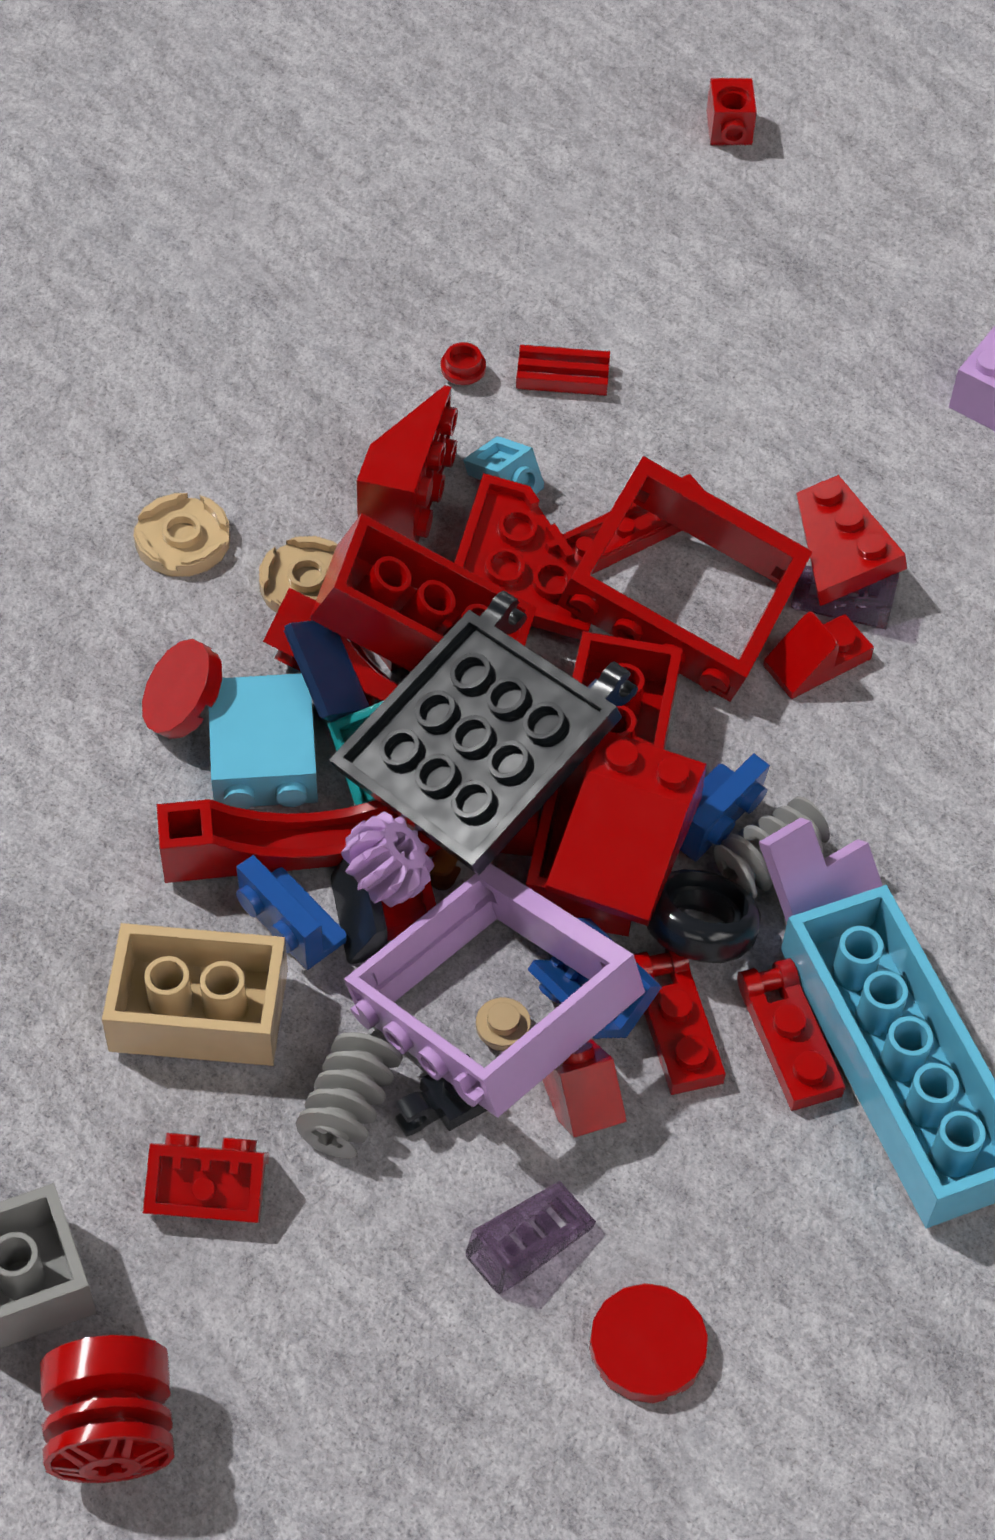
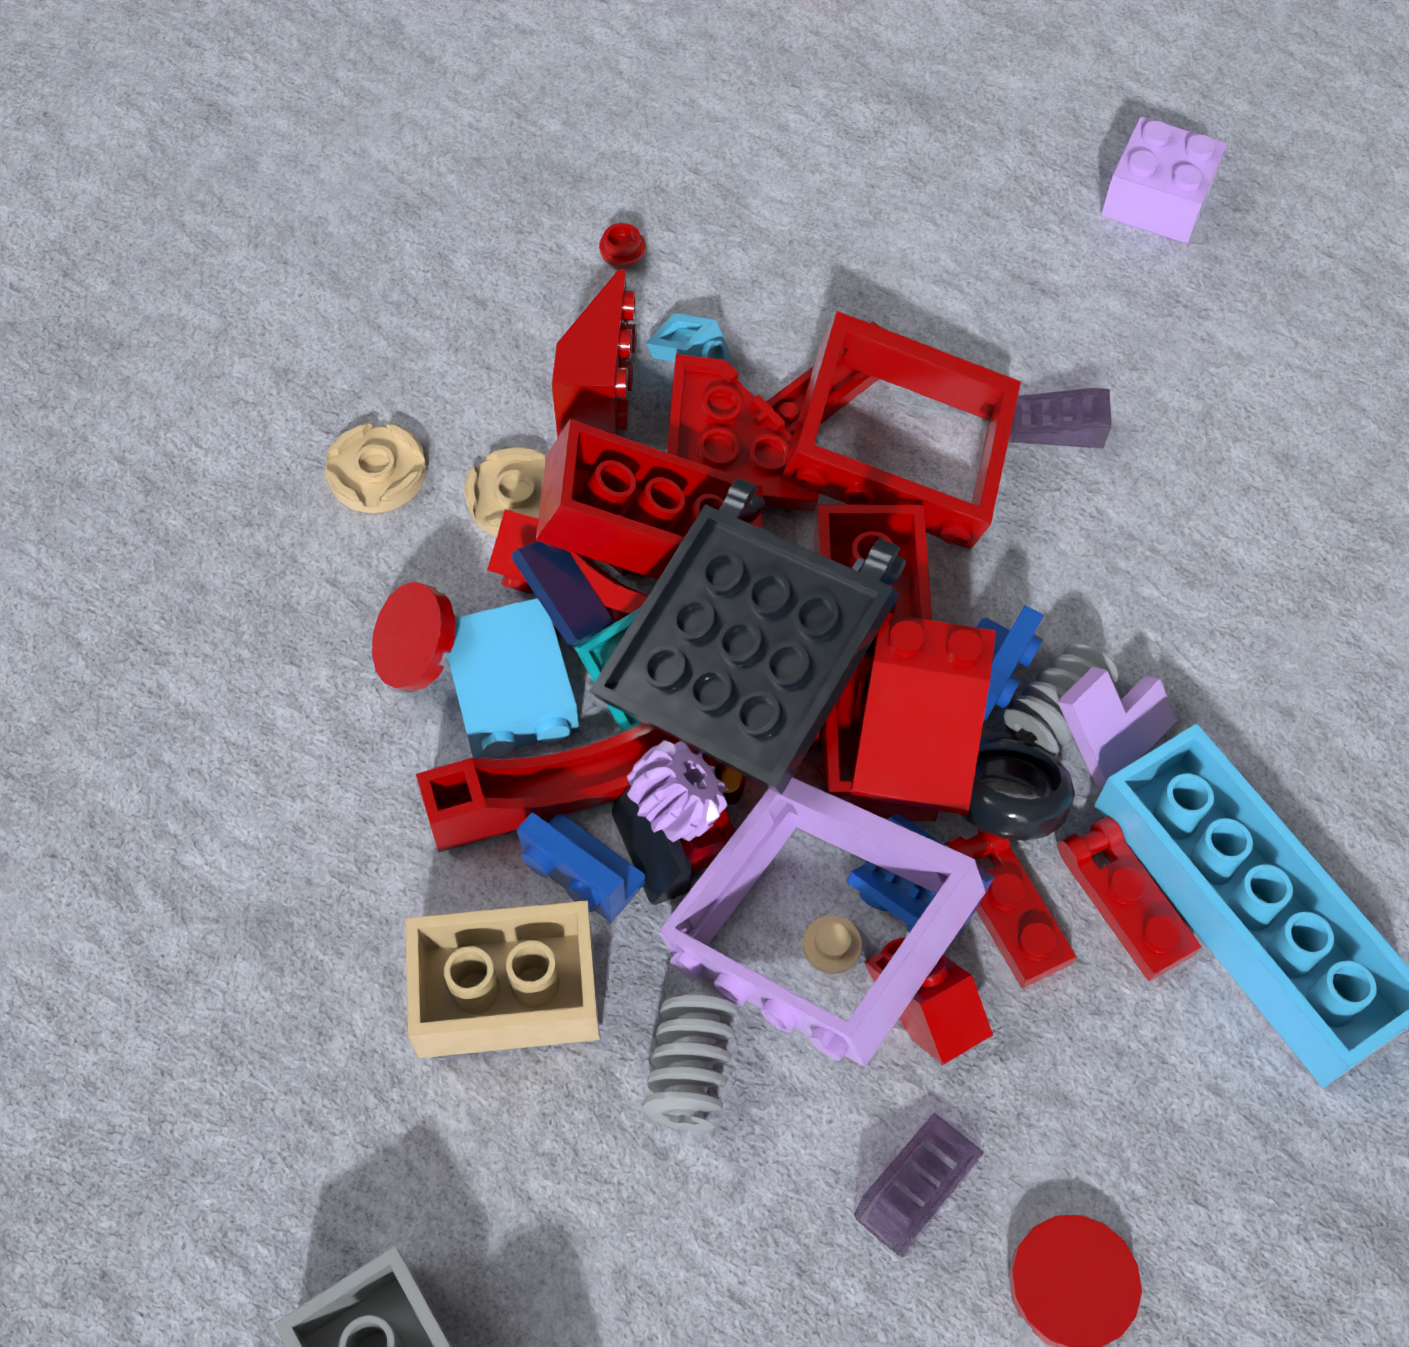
camera: 10 degrees left, 5 degrees up
(205, 1180) = (557, 1190): red bracket -> none
(435, 1102) = (782, 1050): black plate -> none
(563, 364) = (723, 231): red tile -> none
(816, 653) = (1045, 485): red slope -> none
(845, 541) = (1052, 366): red wing -> none

